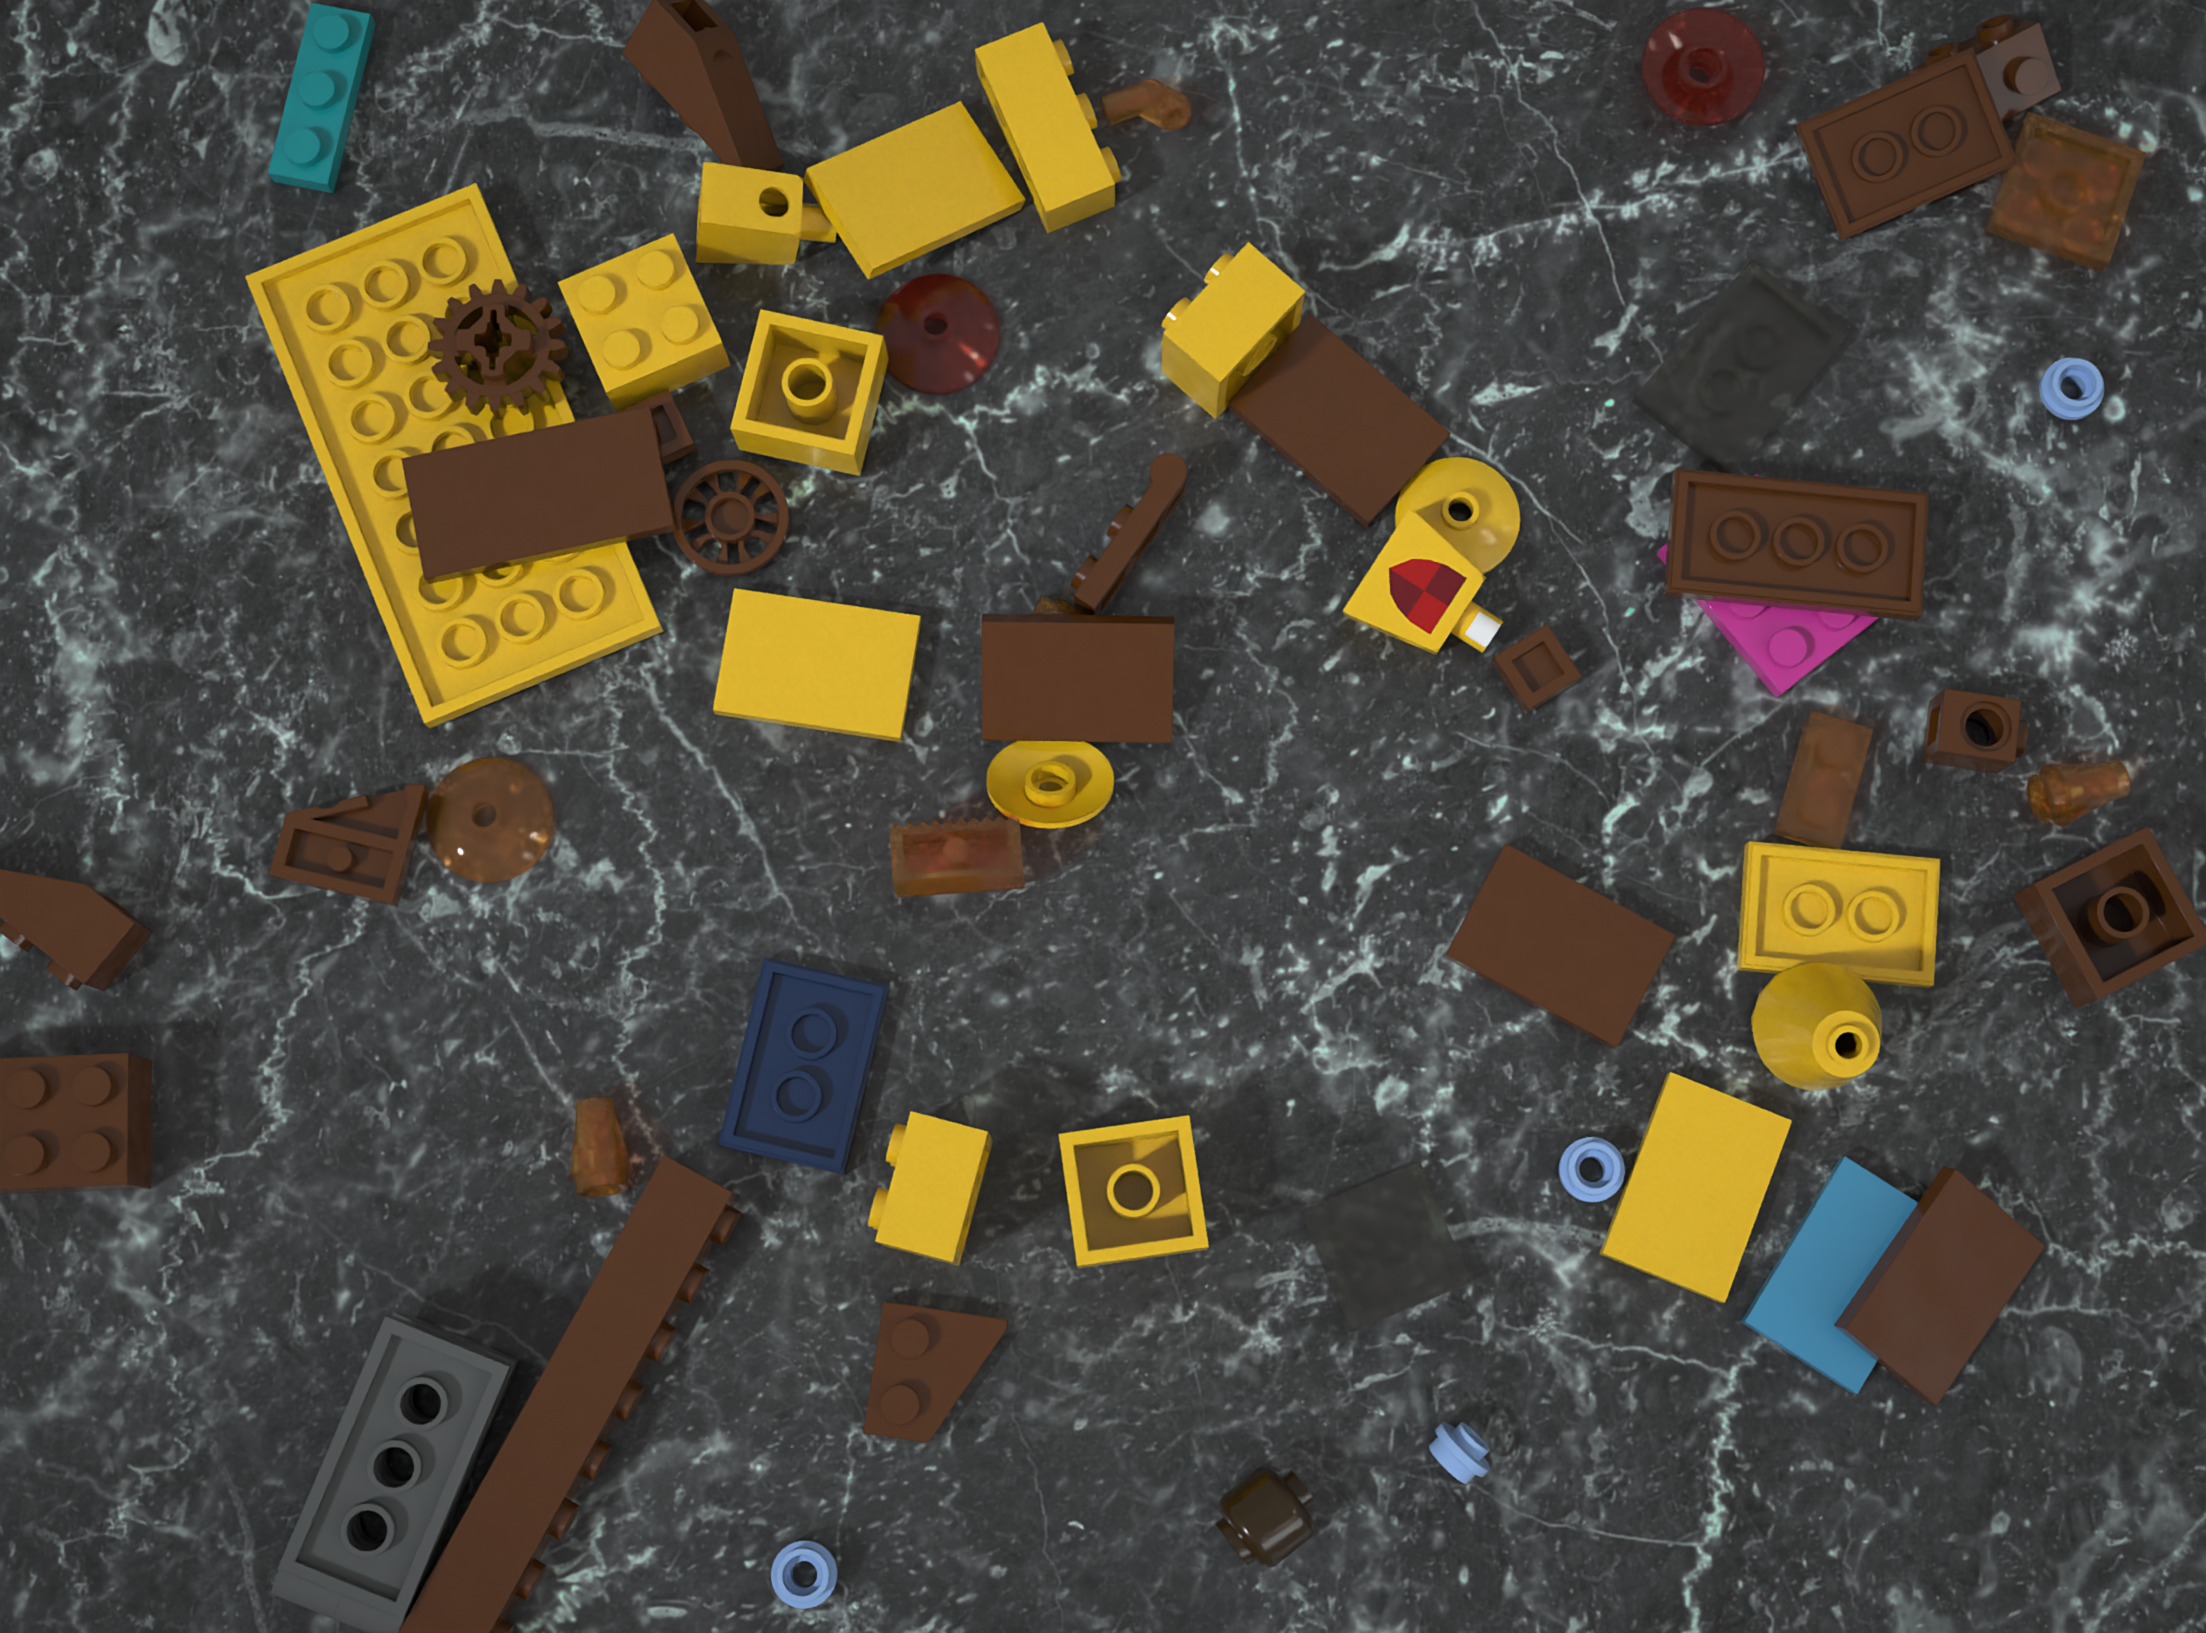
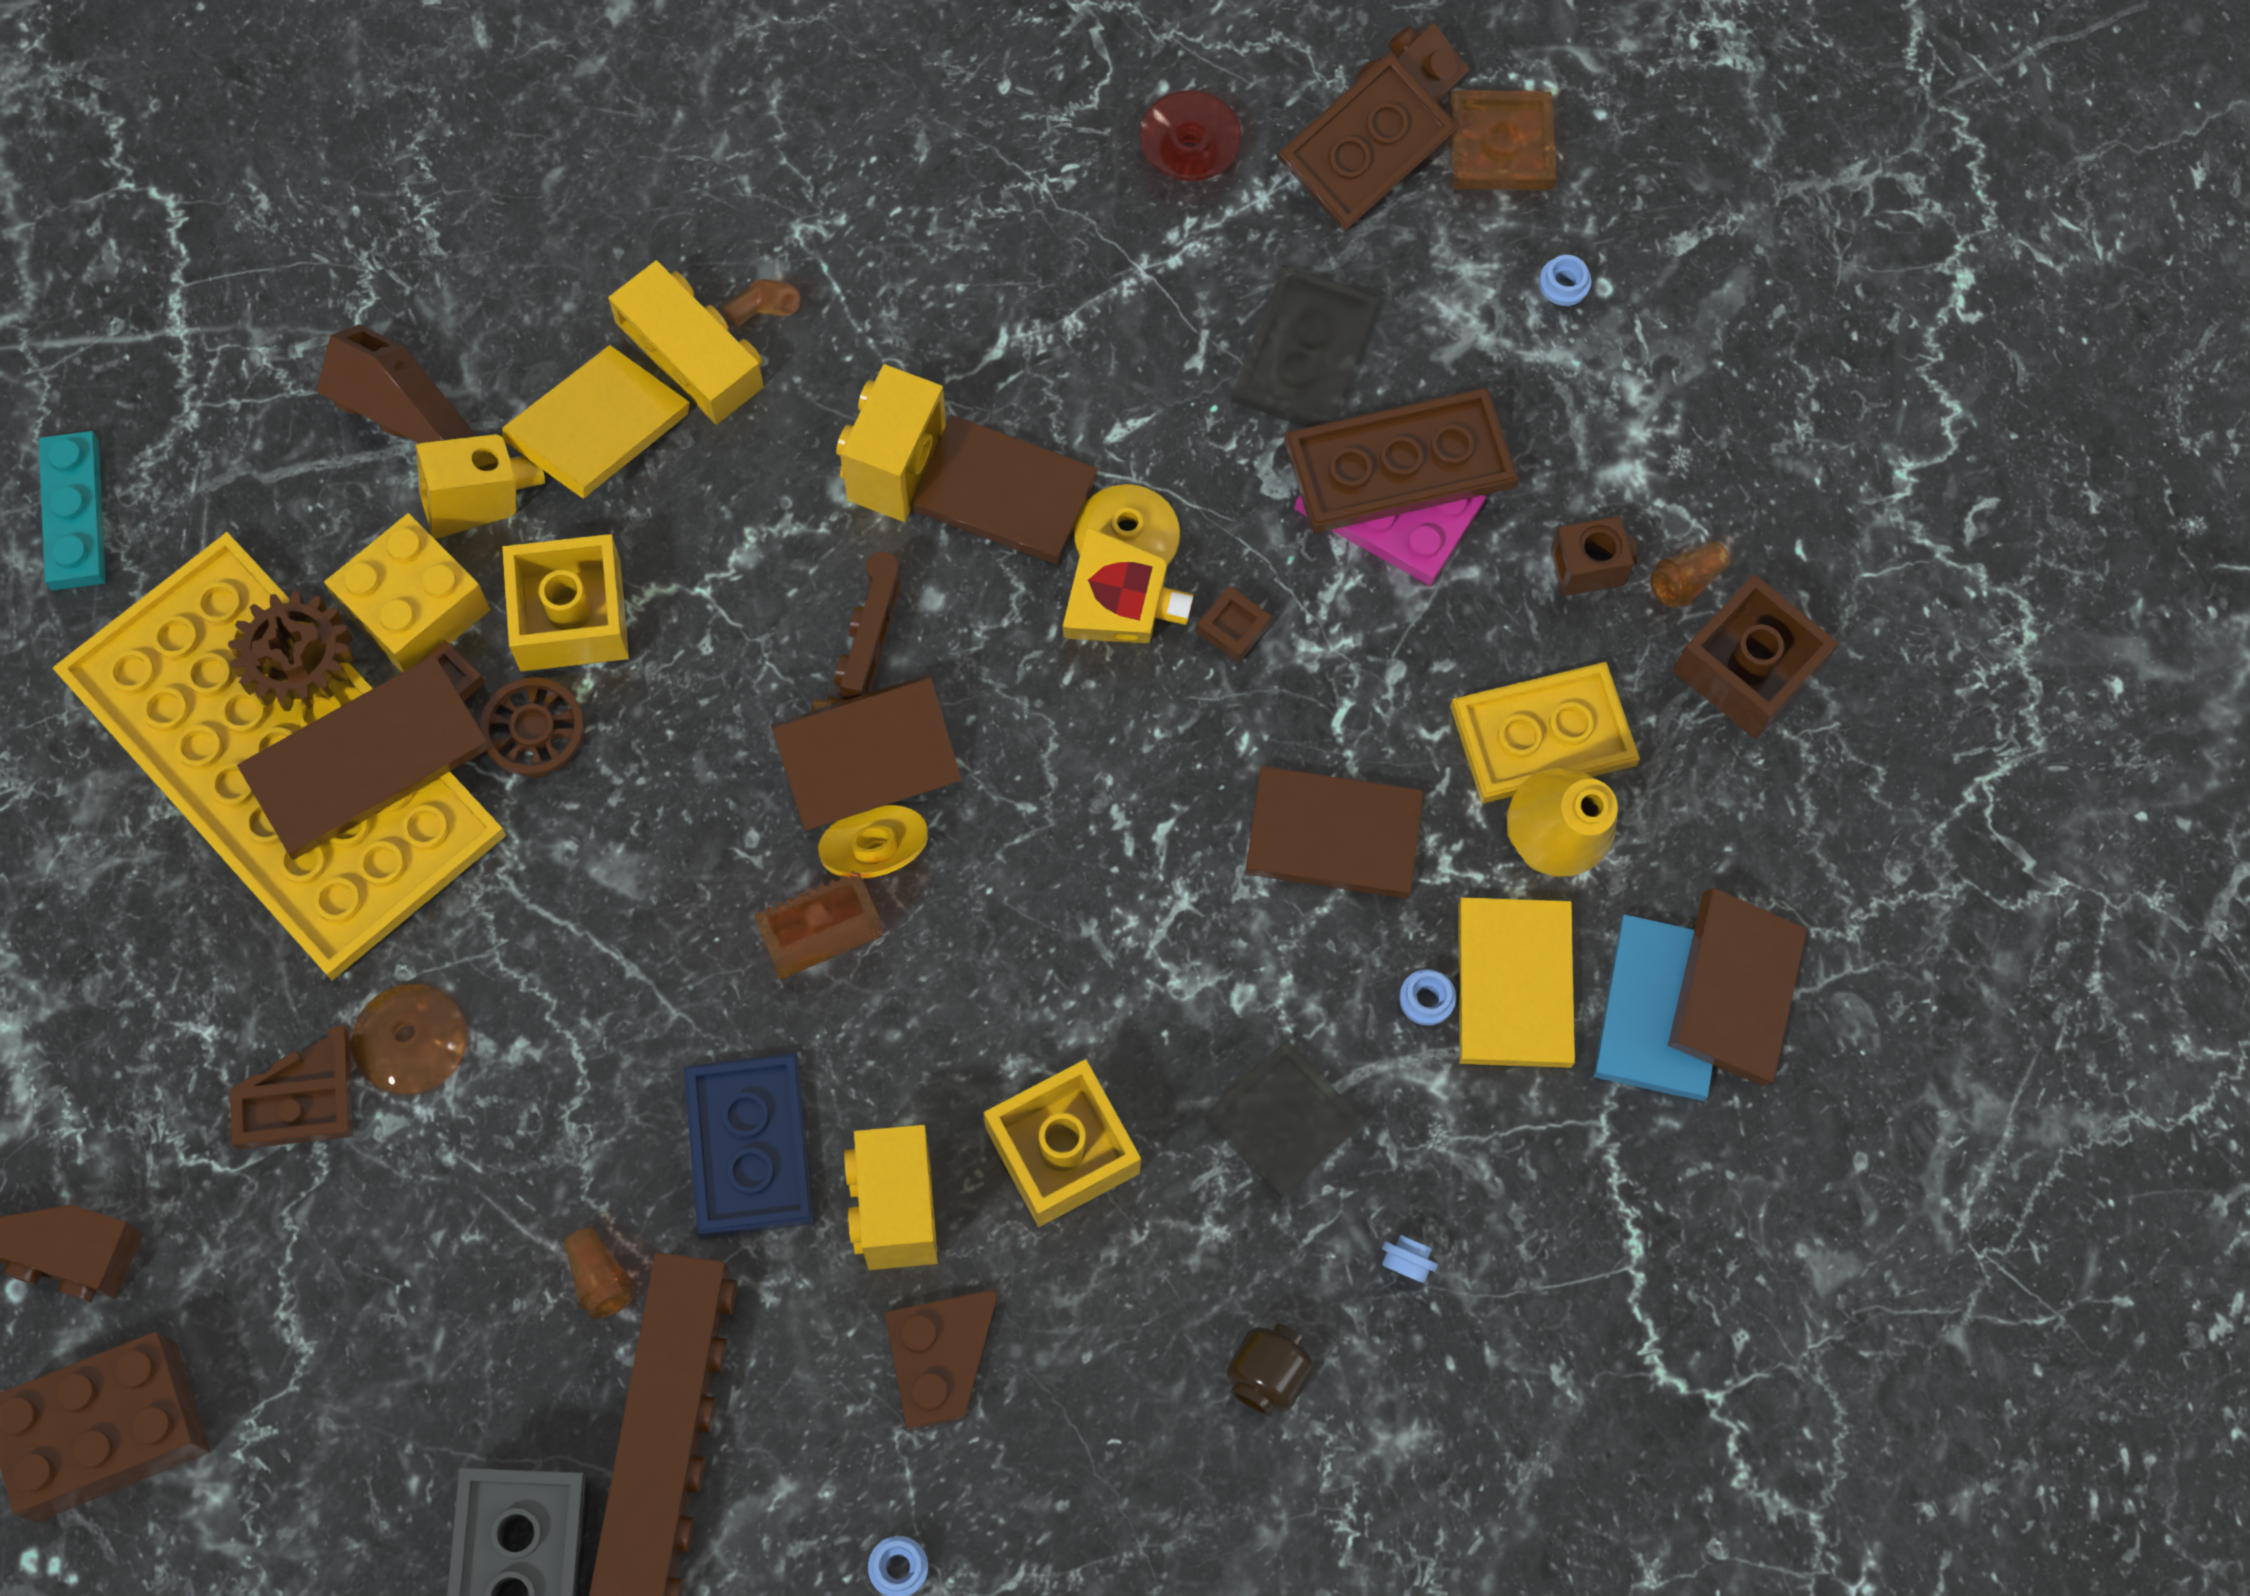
camera: 25 degrees left, 10 degrees down
(817, 665) = (645, 819): yellow tile -> none
(945, 360) = (660, 549): clear red dish -> none
(1823, 781) = (1492, 634): clear orange plate -> none

